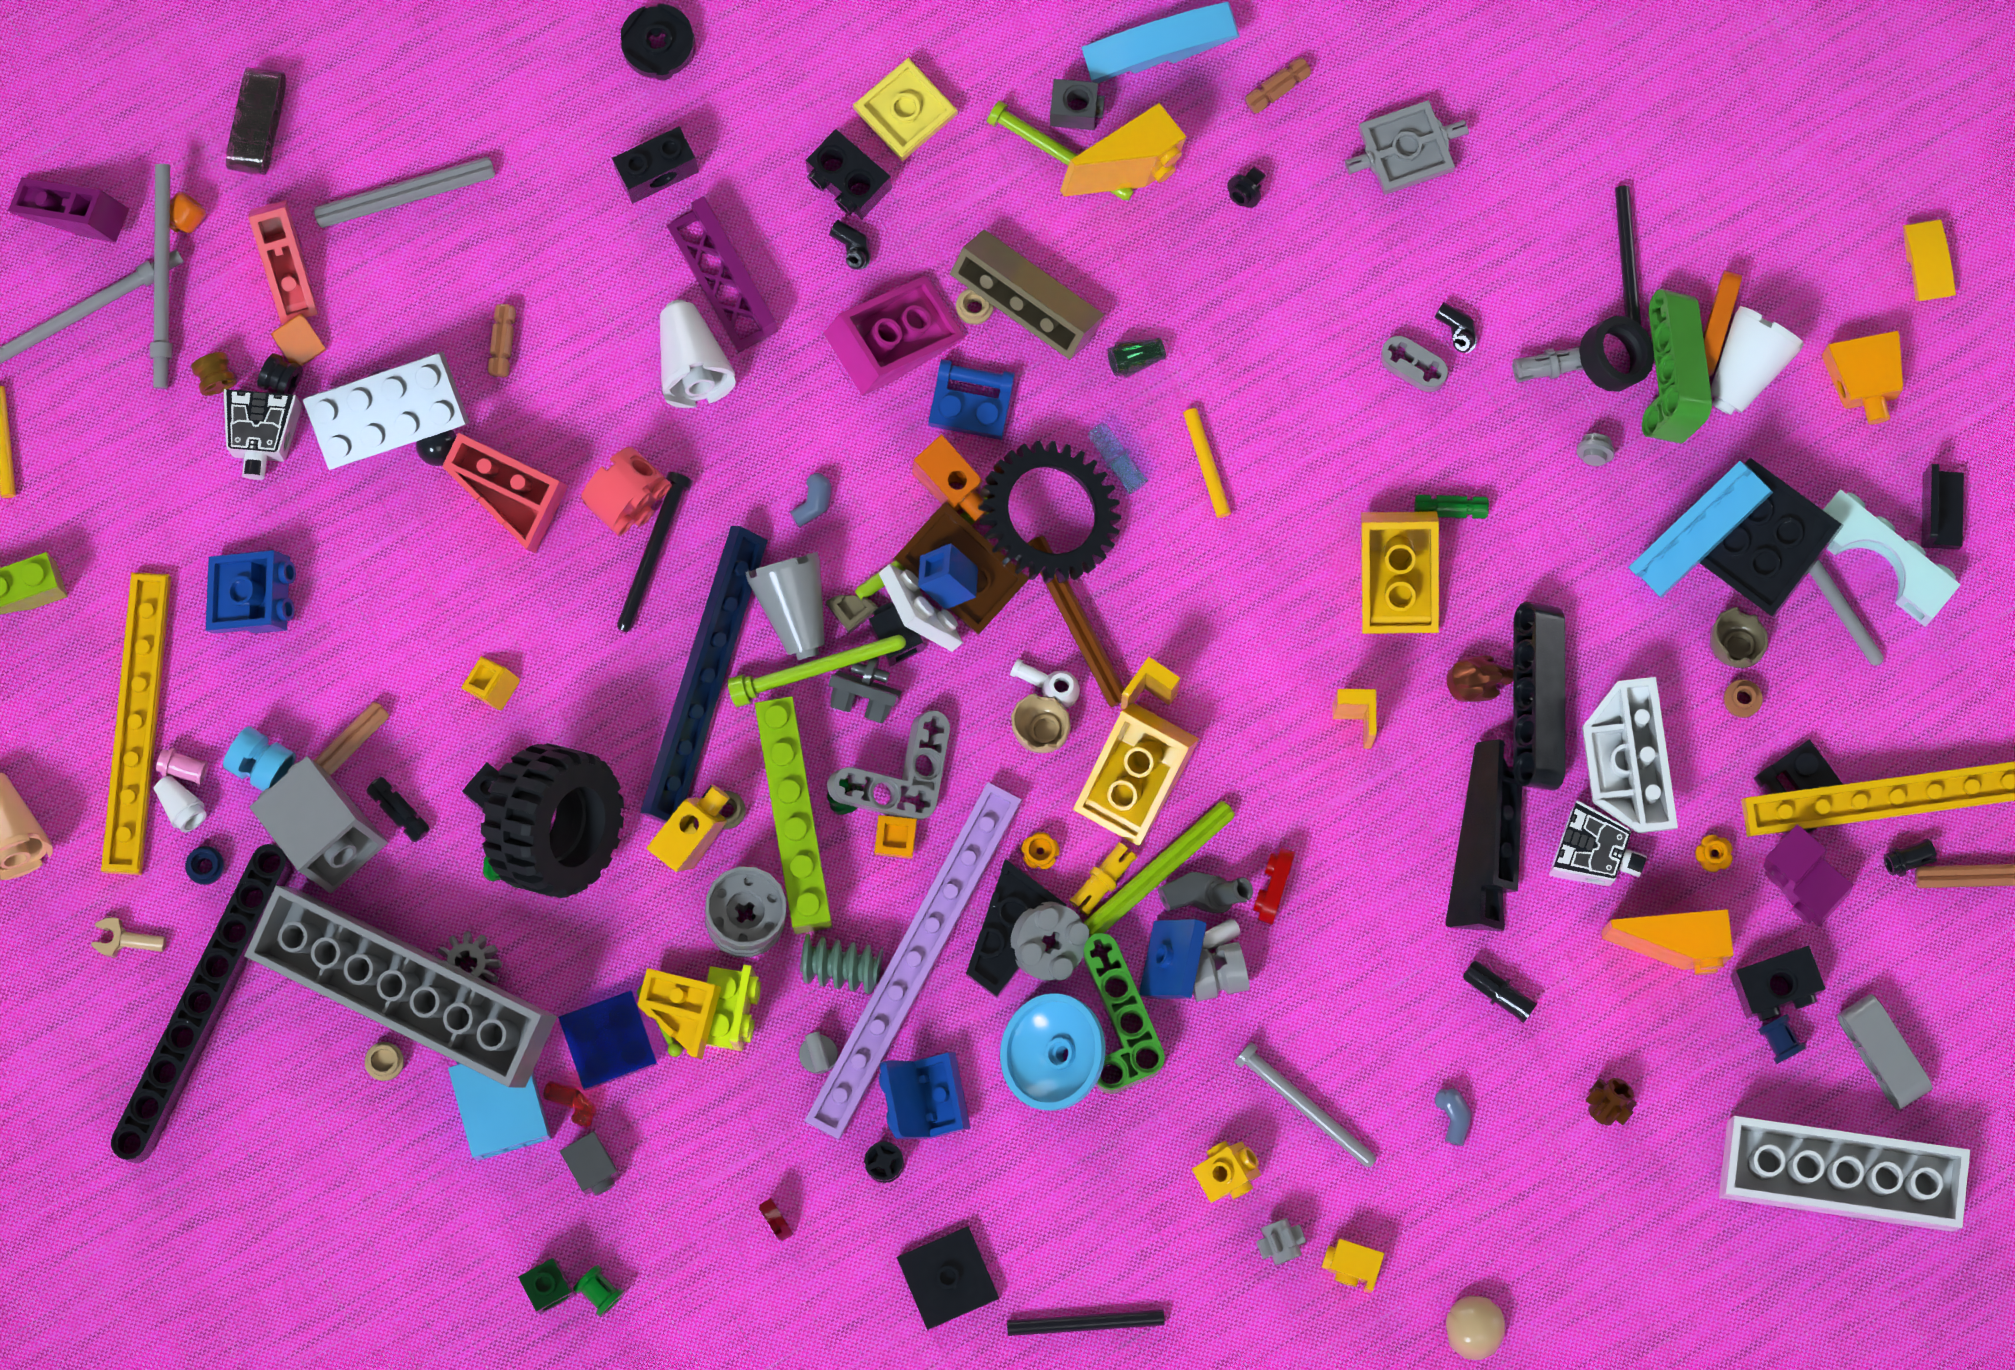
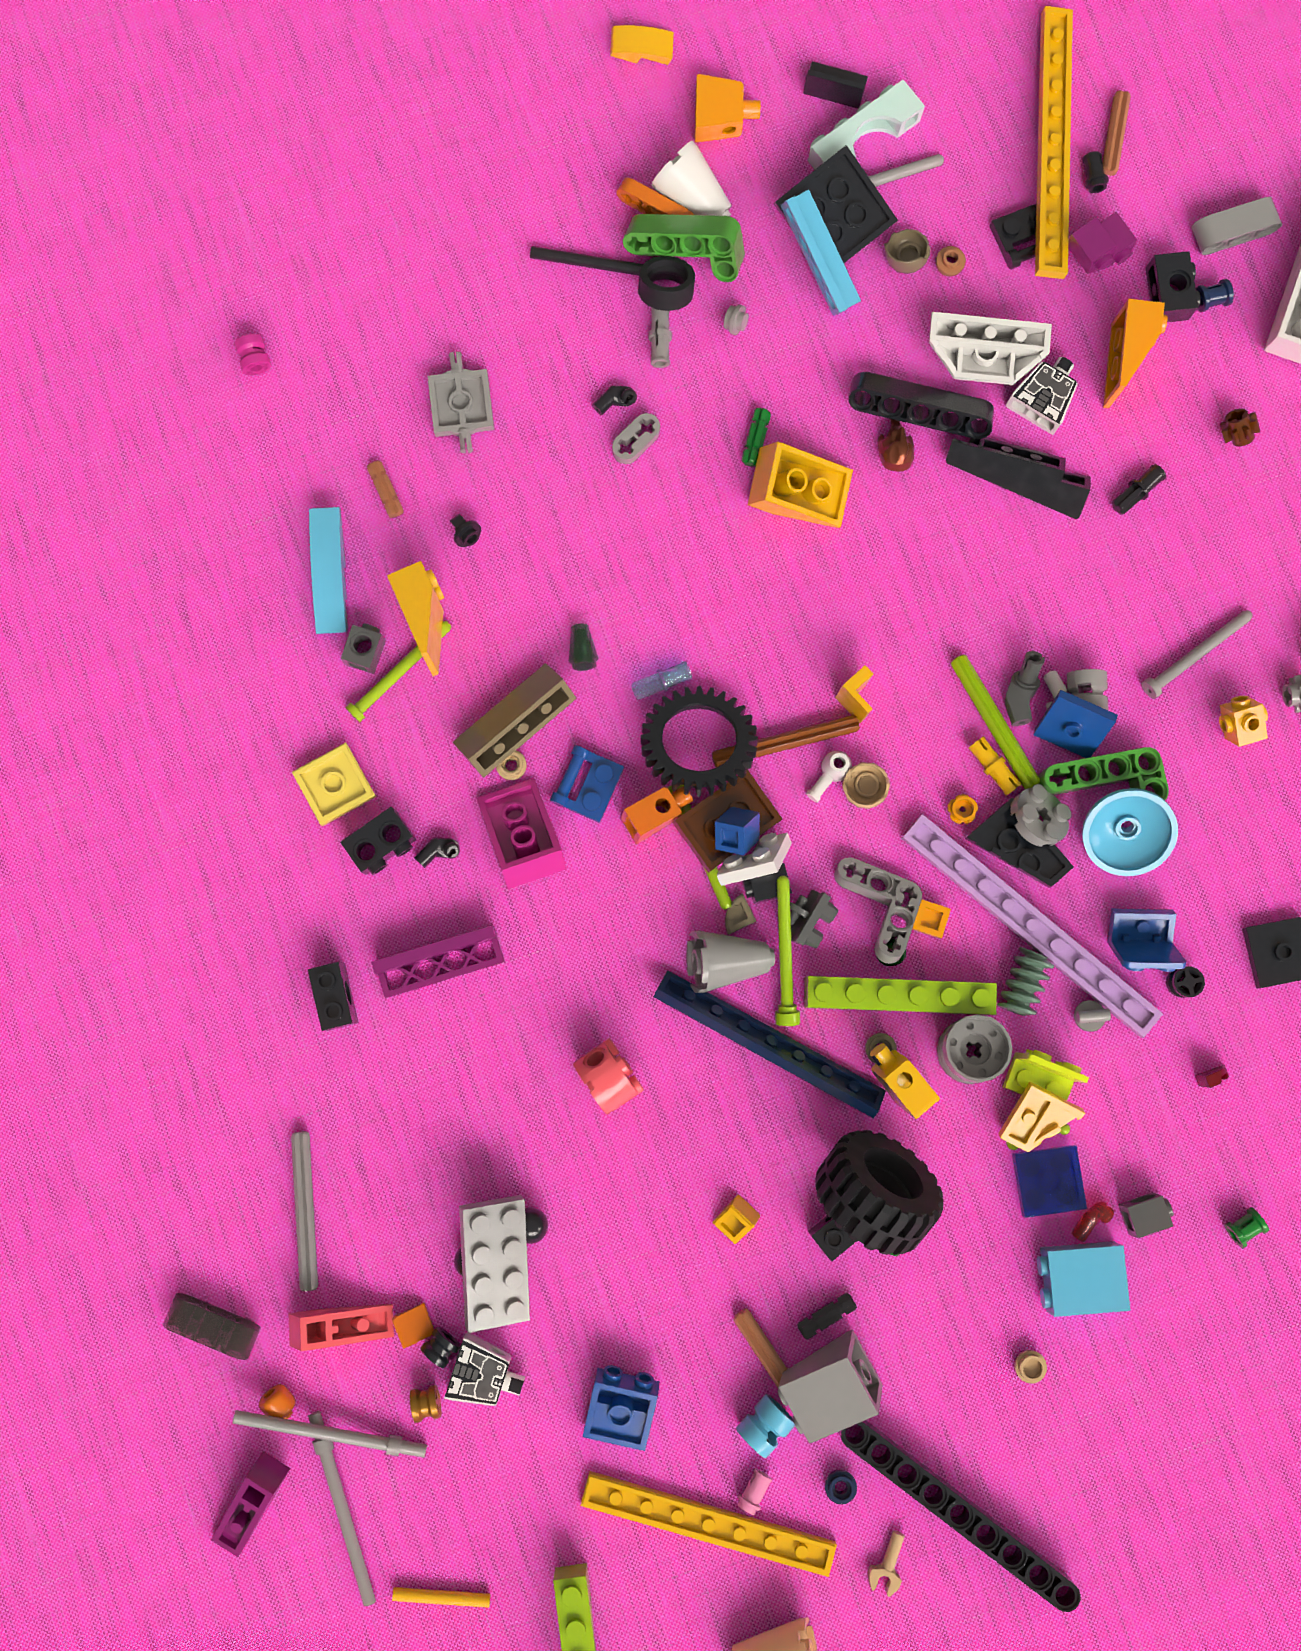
camera: 85 degrees left, 5 degrees up
(180, 805) = (787, 1499): white cone -> none
(401, 986) = (986, 1345): light grey brick -> none
(477, 952) = (963, 1273): light grey gear -> none
(501, 340) = (451, 1153): nougat axle -> none
(508, 489) = (580, 1175): coral wedge -> none
(546, 1286) = (1238, 1269): dark green brick -> none
(653, 549) = (656, 1064): black bar -> none
(658, 62) = (225, 991): black plate -> none
(691, 358) = (503, 1000): white cone -> none
(817, 500) = (642, 922): sand blue arm -> none
(1135, 773) = (918, 721): yellow slope -> none
(1206, 463) = (679, 613): yellow bar -> none
(1268, 901) = (1018, 630): red plate -> none
(1358, 705) = (912, 533): yellow panel -> none
(1457, 1111) = (1225, 541): sand blue arm -> none
(1712, 863) = (1060, 317): light orange plate -> none

